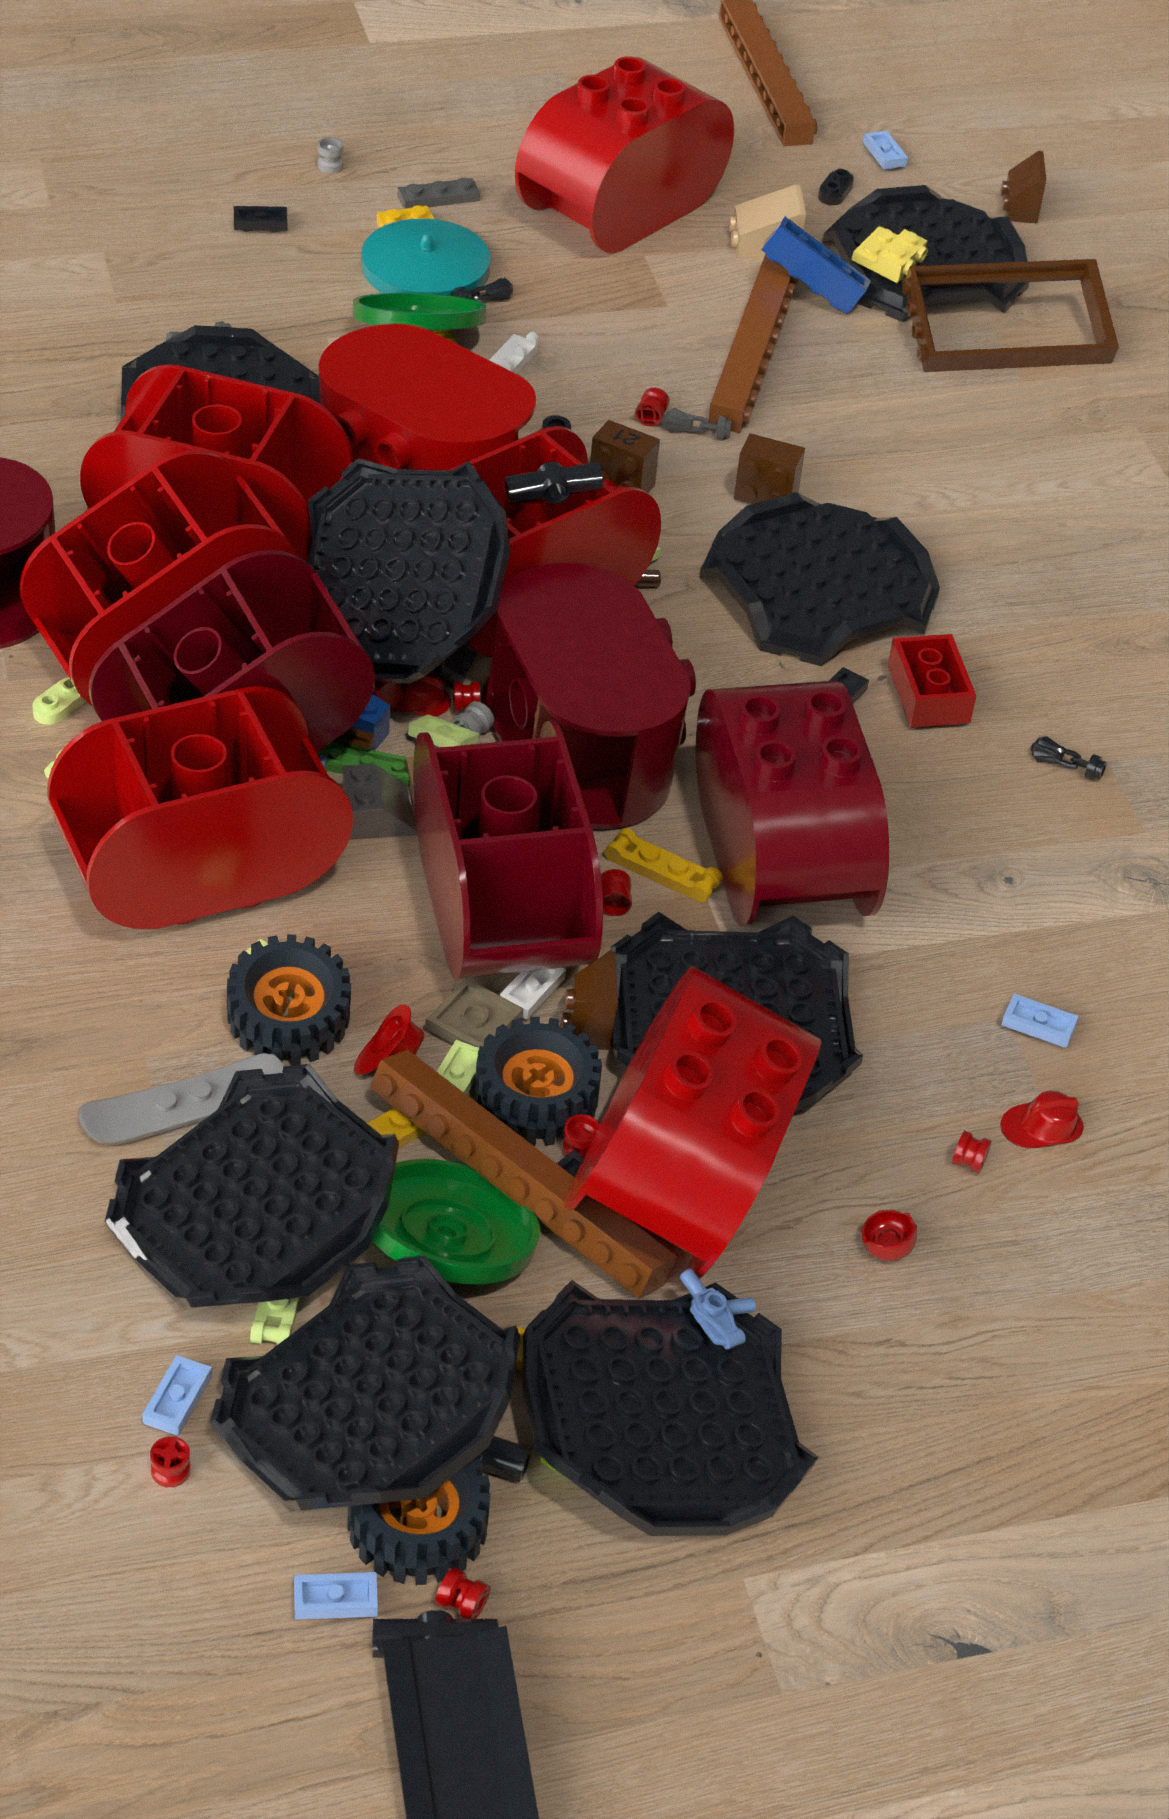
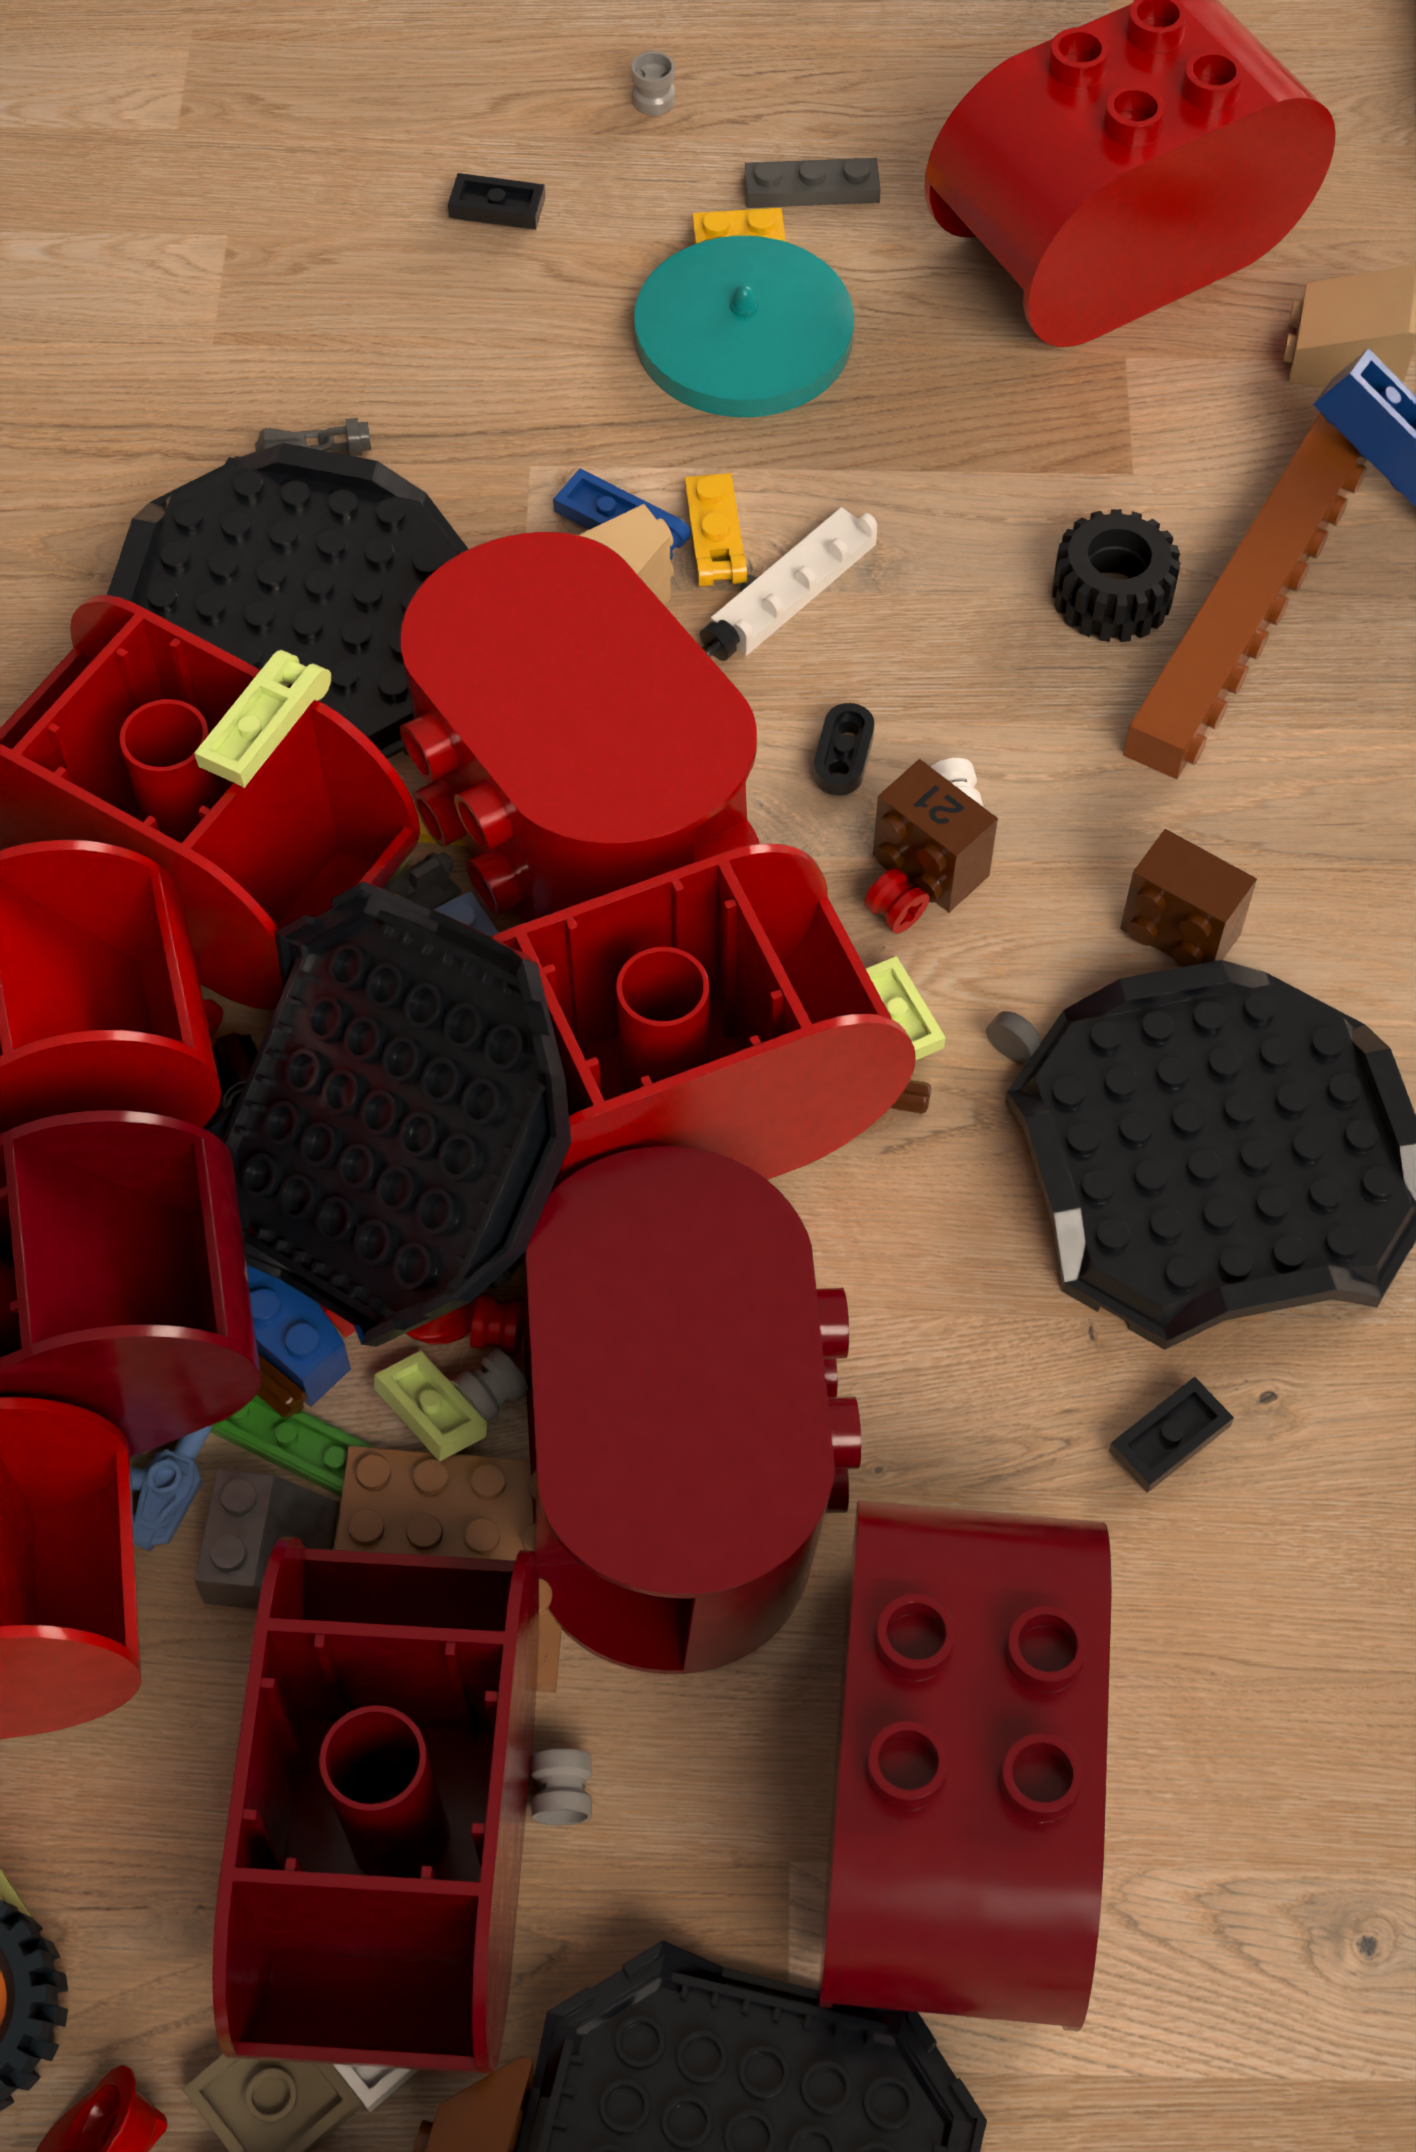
camera: 20 degrees right, 15 degrees up
(273, 400) = (261, 717): none -> yellowish green plate
(424, 310) = (680, 452): green container -> none
(498, 289) = (846, 405): black piece -> none
(553, 482) = (695, 996): black piece -> none
(616, 892) = (616, 1839): red wheel -> none
(652, 407) = (1027, 711): red wheel -> none
(663, 866) = (729, 1788): yellow plate -> none
(677, 344) = (1119, 546): none -> black tyre
(680, 421) = (1067, 743): dark grey piece -> none
(696, 544) = (1013, 1036): none -> dark grey tile
(931, 680) = (1348, 1447): red brick -> none

